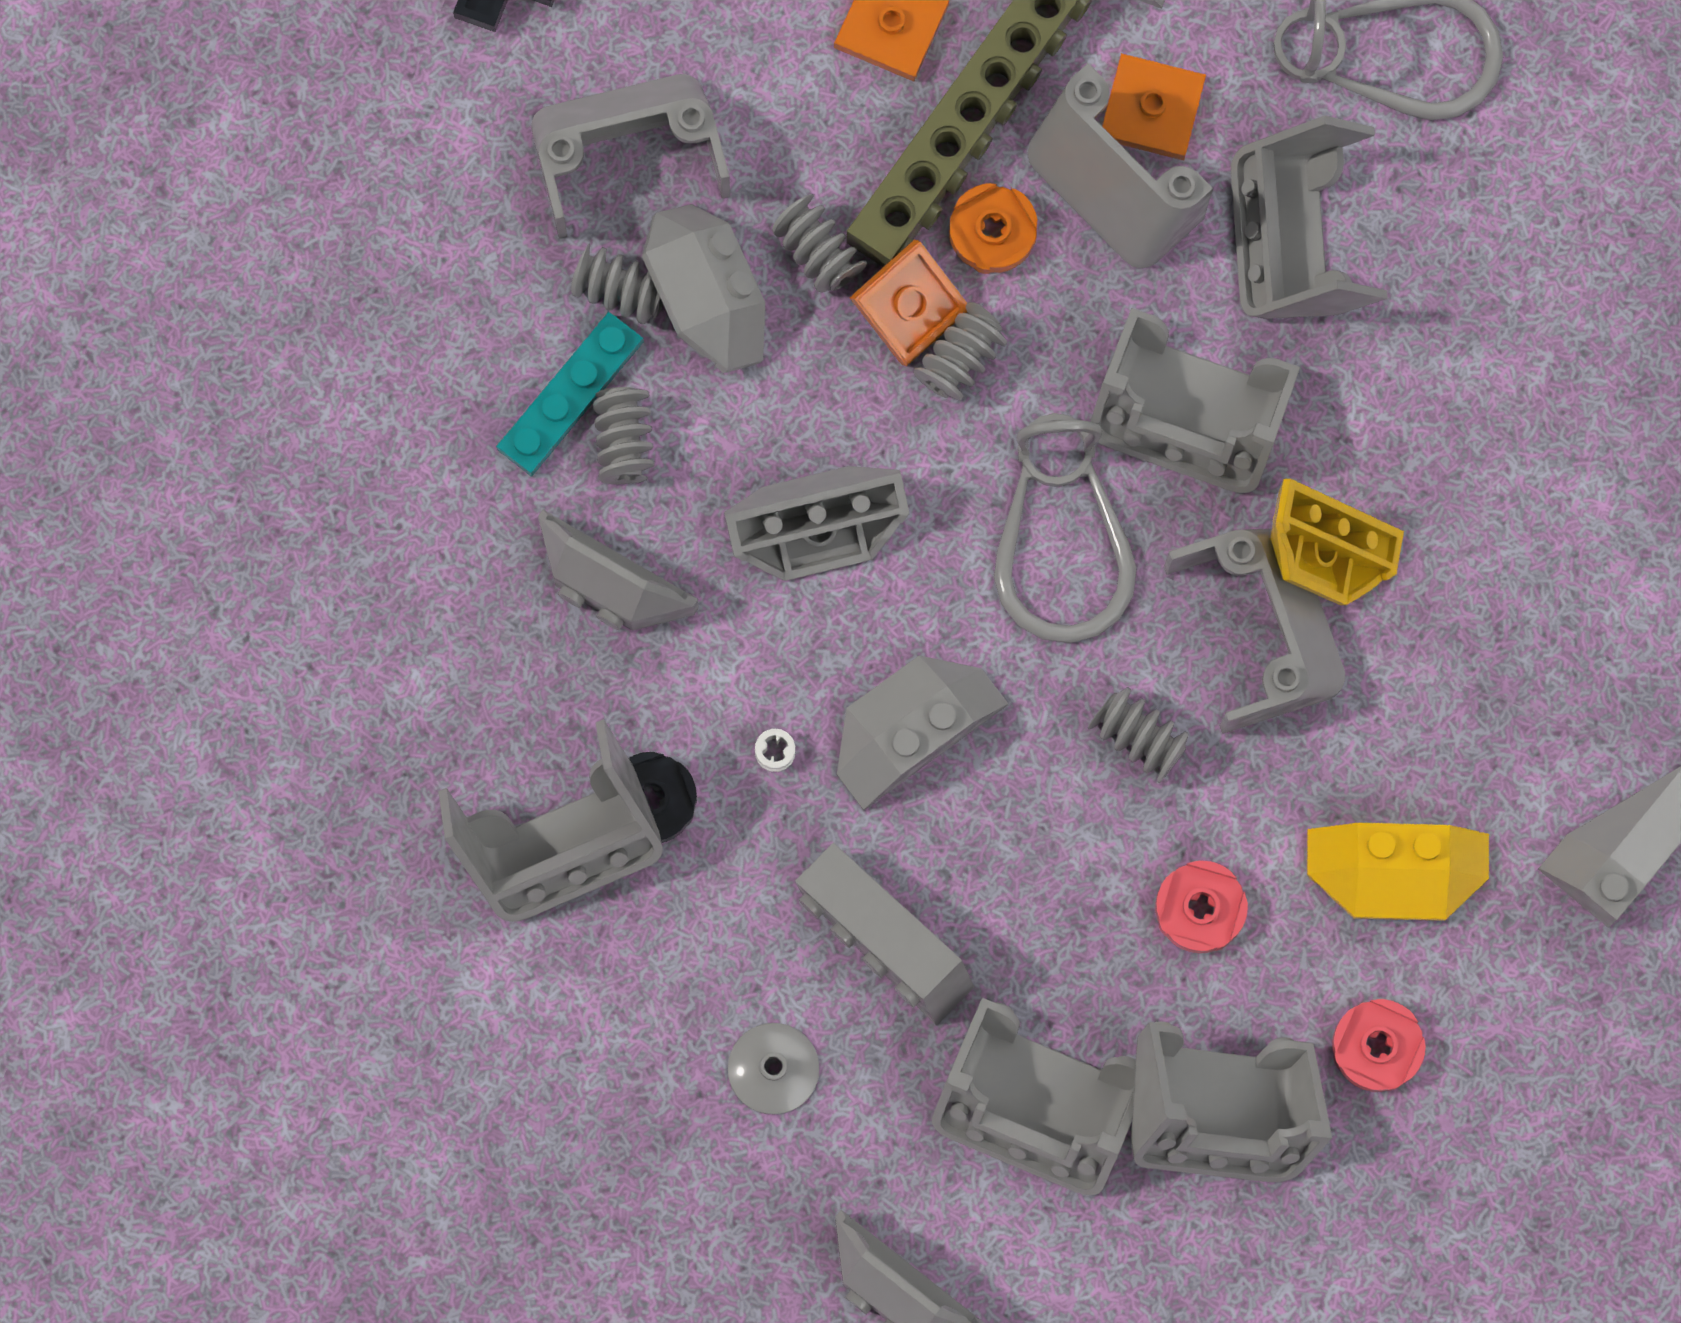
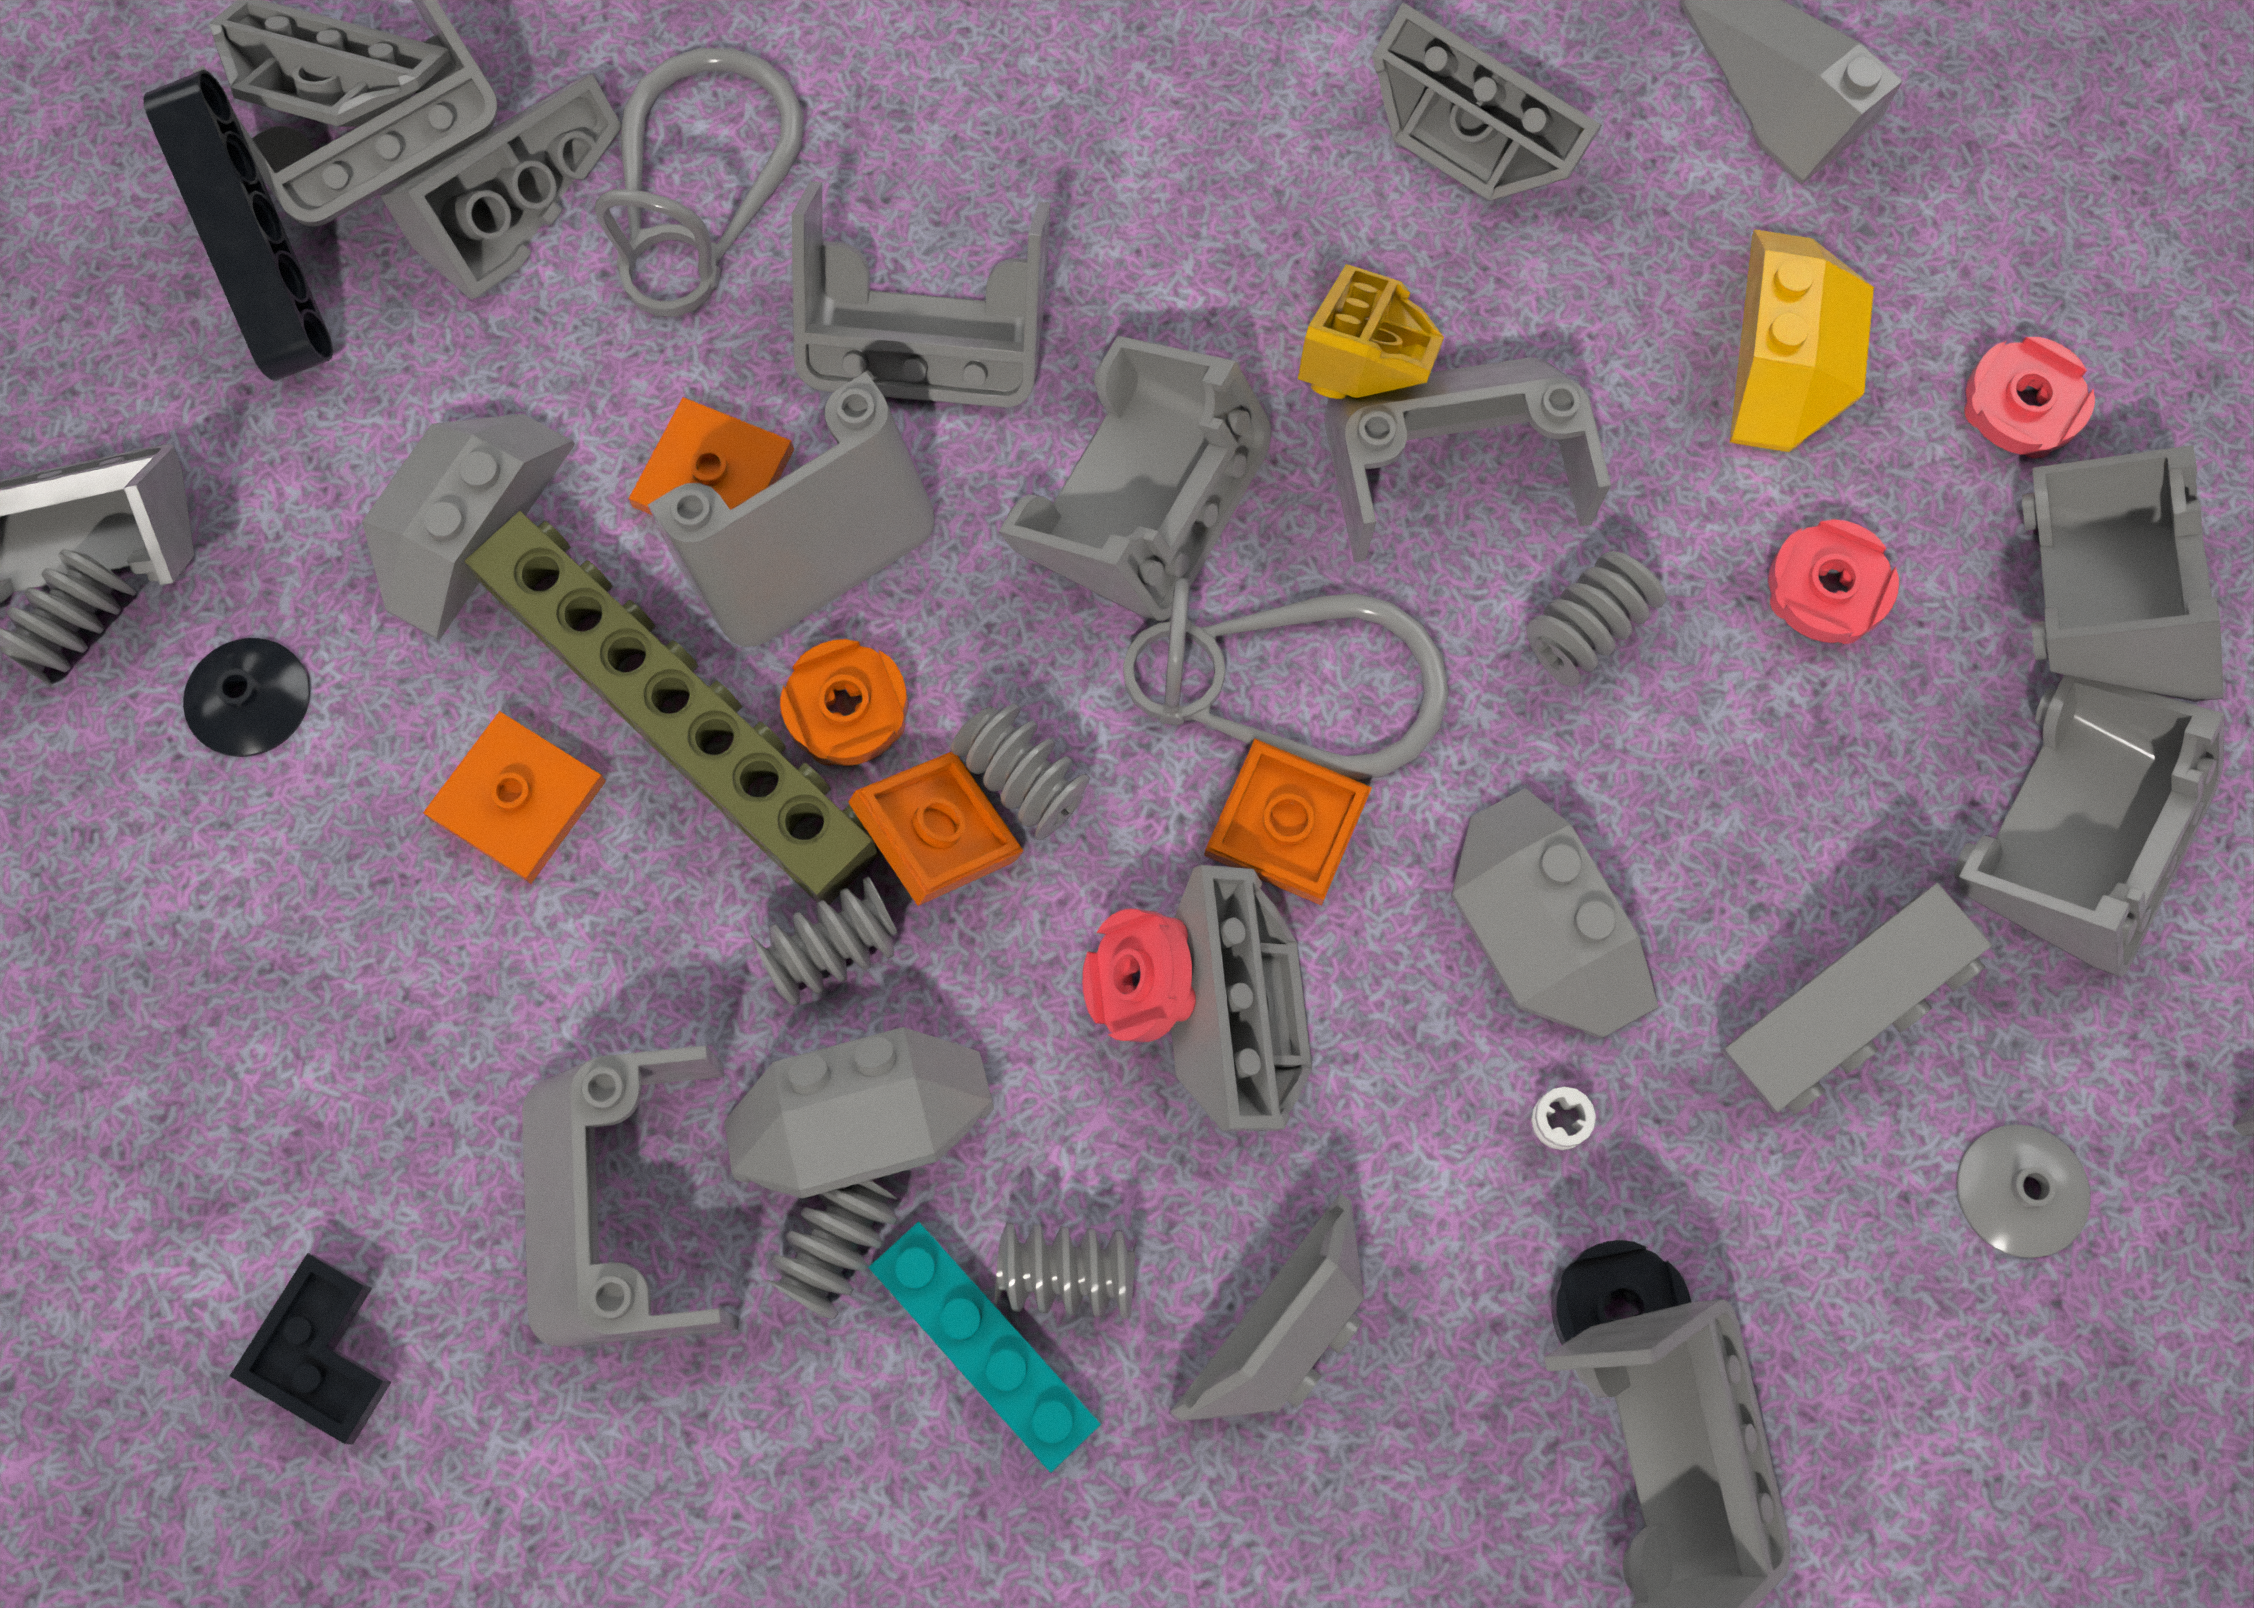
camera: 80 degrees left, 5 degrees down
(825, 451) = (1164, 992): none -> coral plate
(955, 540) = (1288, 821): none -> orange plate
(1545, 606) = (1474, 111): none -> light grey wedge

